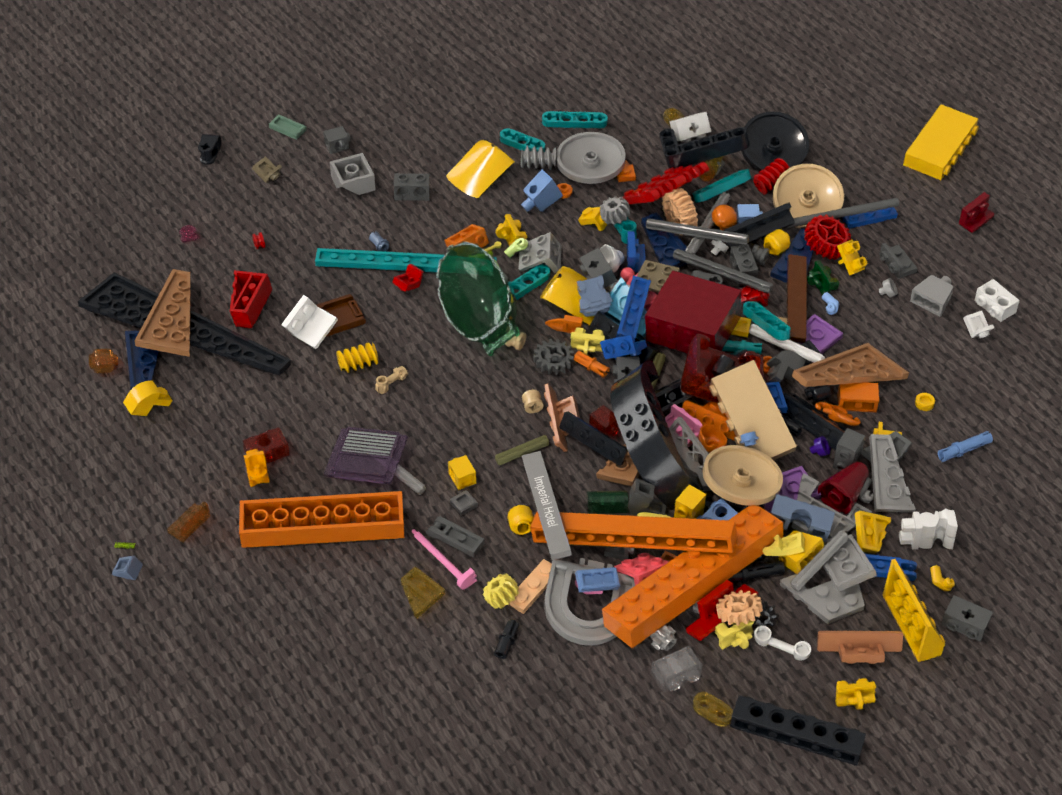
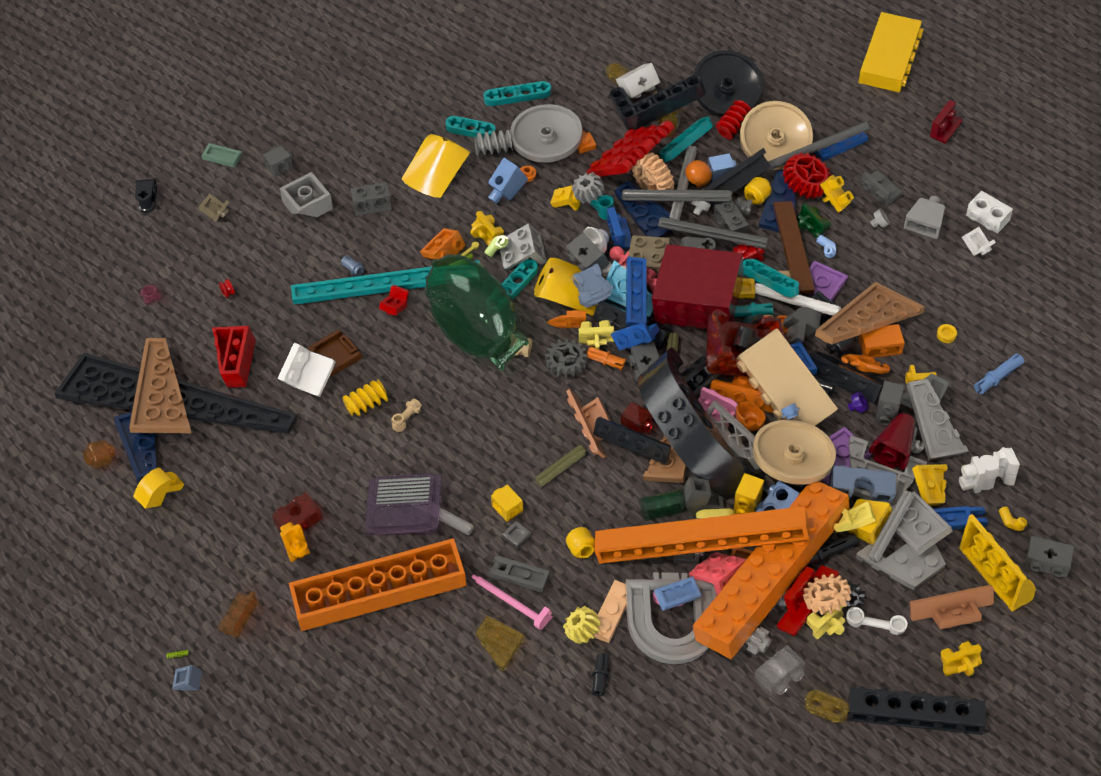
camera: 10 degrees left, 5 degrees up
(532, 401) = (557, 411): tan wheel -> none
(546, 506) = (605, 524): light grey tile -> none

